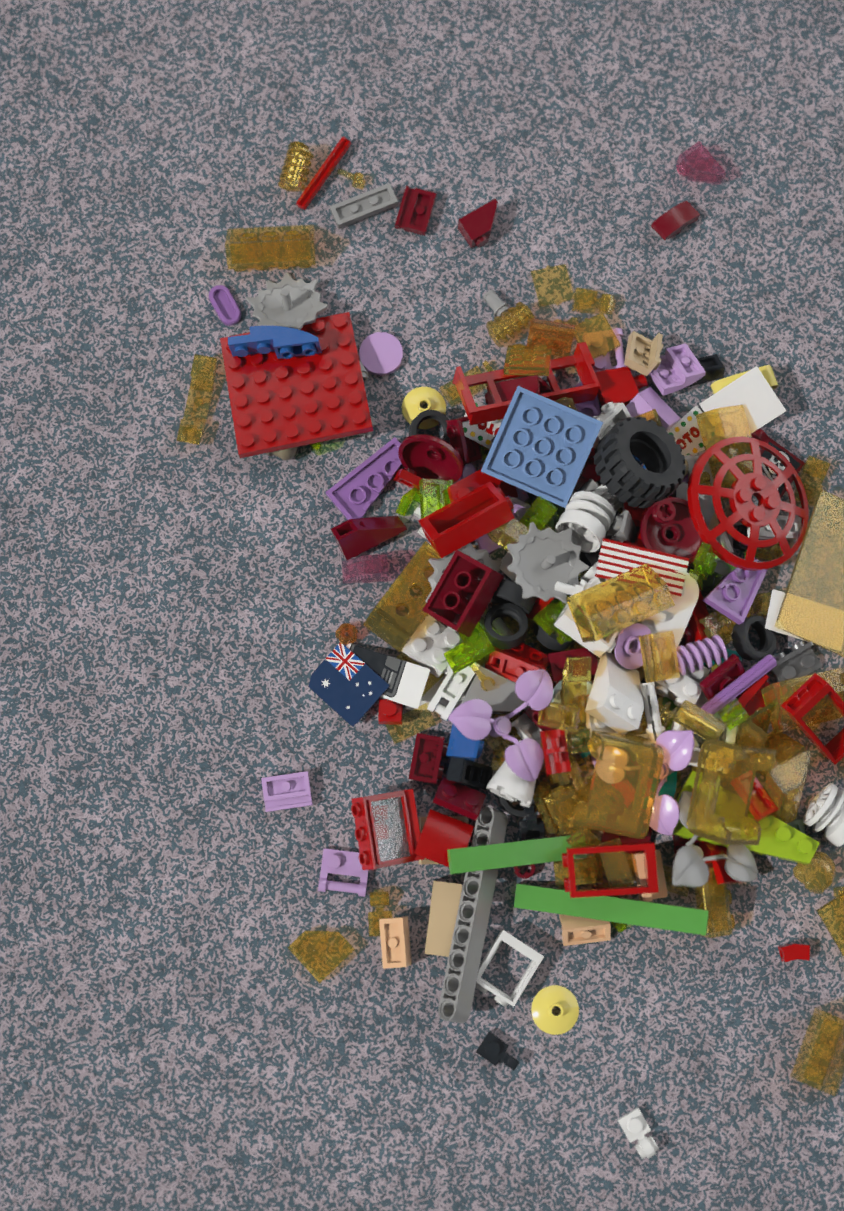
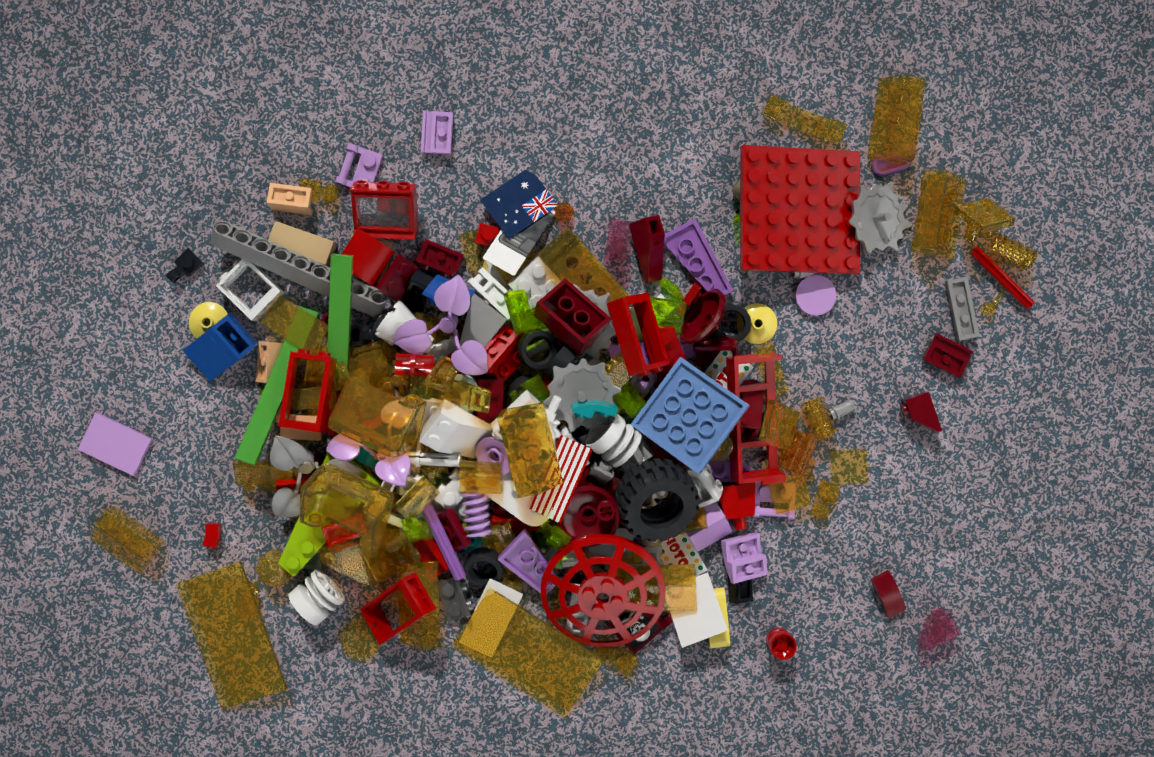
camera: 110 degrees right, 10 degrees up
(179, 306) = (896, 119): none -> clear yellow slope
(266, 200) = (983, 218): none -> clear yellow plate
(283, 340) = (841, 205): blue slope -> none
(321, 951) = (297, 135): clear yellow plate -> none
(481, 676) = (495, 318): clear yellow hand -> none
(537, 905) = (295, 324): none -> clear yellow piece
(558, 546) = (587, 408): none -> teal slope
(581, 987) = (220, 346): none -> blue slope
(634, 1128) = (100, 366): white plate -> none
(642, 353) = (764, 532): tan bracket -> none
(719, 1090) = (115, 444): none -> lavender tile
(754, 314) = (781, 643): none -> red wheel

